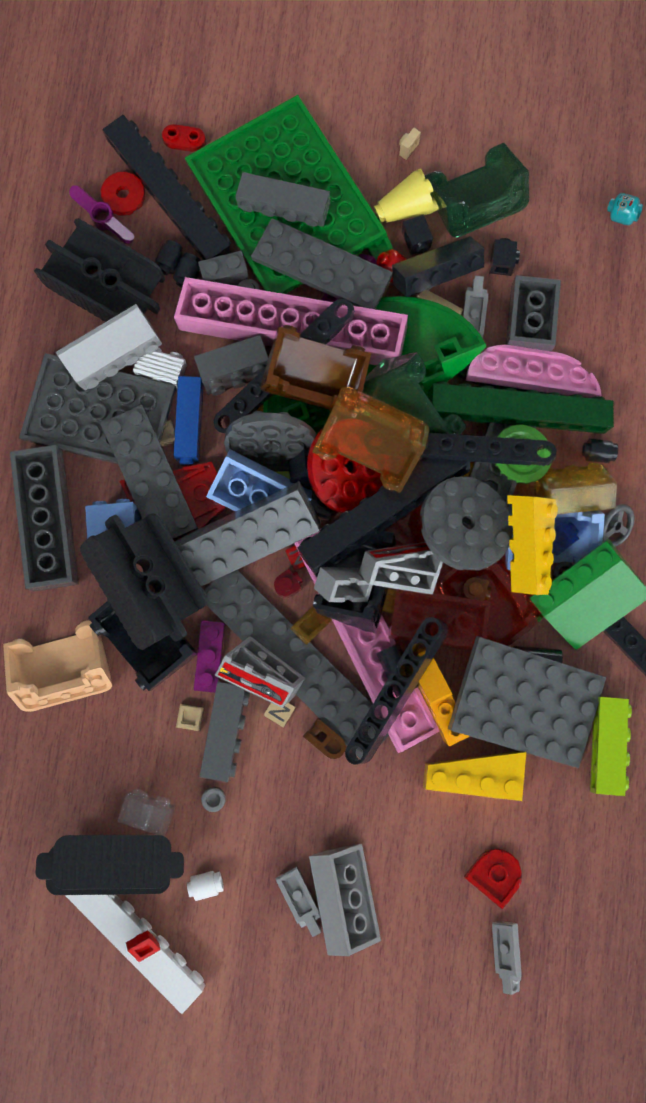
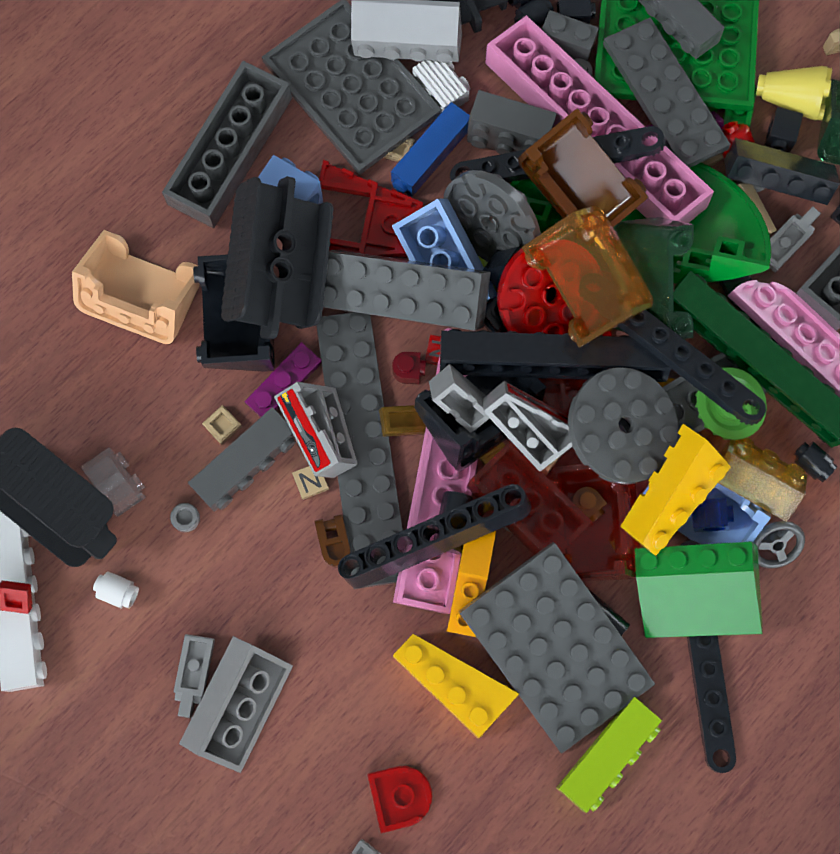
camera: 35 degrees right, 5 degrees down
(148, 471) = (357, 169): dark grey plate -> none

